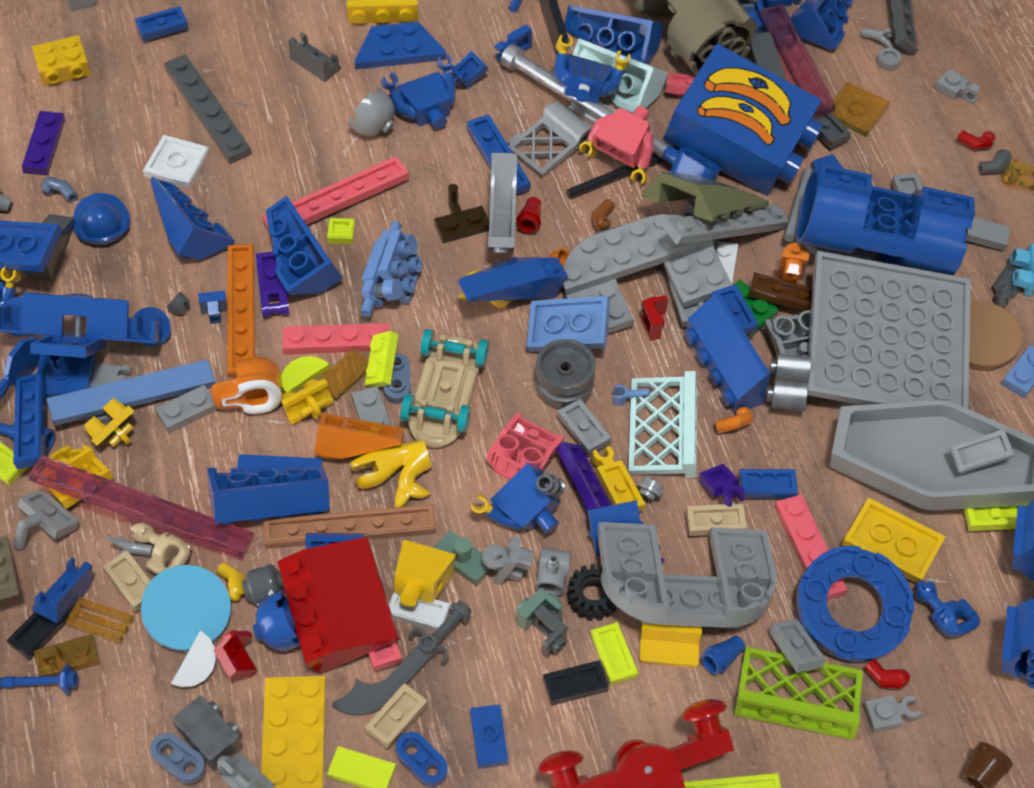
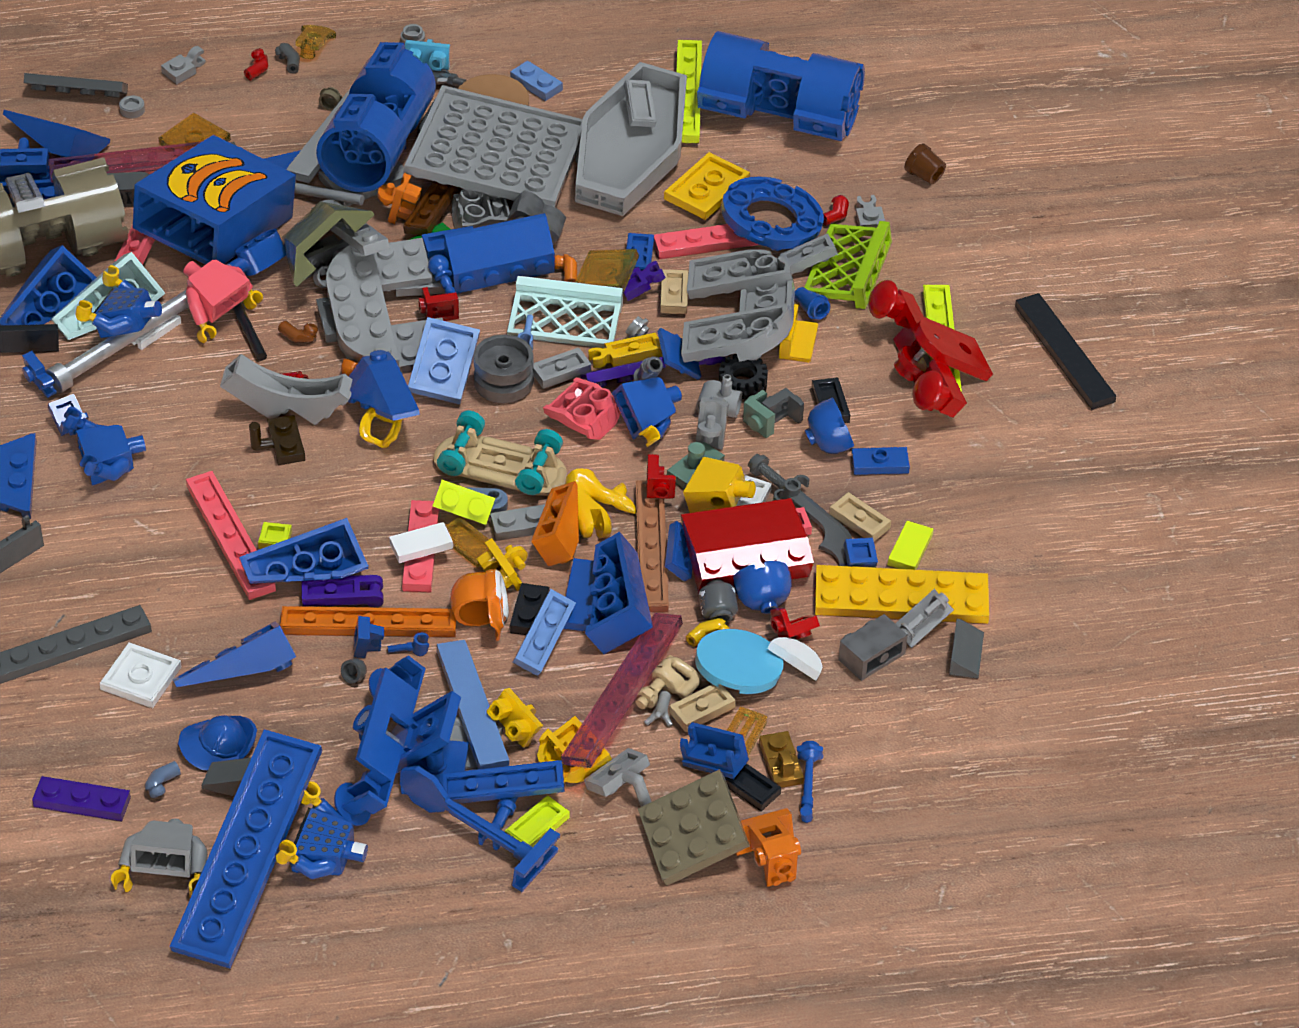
camera: 85 degrees left, 10 degrees down
(180, 758) = (891, 674): sand blue plate -> none
(186, 409) = (494, 667): light grey plate -> none
(211, 343) = (418, 646): none -> blue hand
(218, 439) = (544, 632): none -> medium blue plate
(259, 430) = (527, 606): none -> black plate
(301, 371) = (457, 566): neon yellow tile -> none
(324, 330) = (421, 542): none -> white tile
(342, 717) = (860, 552): none -> blue plate
(374, 114) = (119, 492): light grey cylinder -> none
(391, 269) = (346, 487): medium blue piece -> none
(422, 512) = (658, 484): none -> red bracket
(424, 759) = (899, 503): blue plate -> none
(491, 141) = (188, 405): blue plate -> none
(518, 678) = (828, 428): none -> blue cylinder
(560, 123) = (176, 346): light grey piece -> none
(614, 653) = (801, 374): neon yellow tile -> none
(692, 304) = (439, 267): none -> blue bar
(729, 453) = (608, 267): none -> clear yellow tile
(880, 36) = (99, 107): light grey bar -> none
(906, 183) = (308, 116): light grey plate -> none
(947, 613) = (784, 163): blue piece -> none

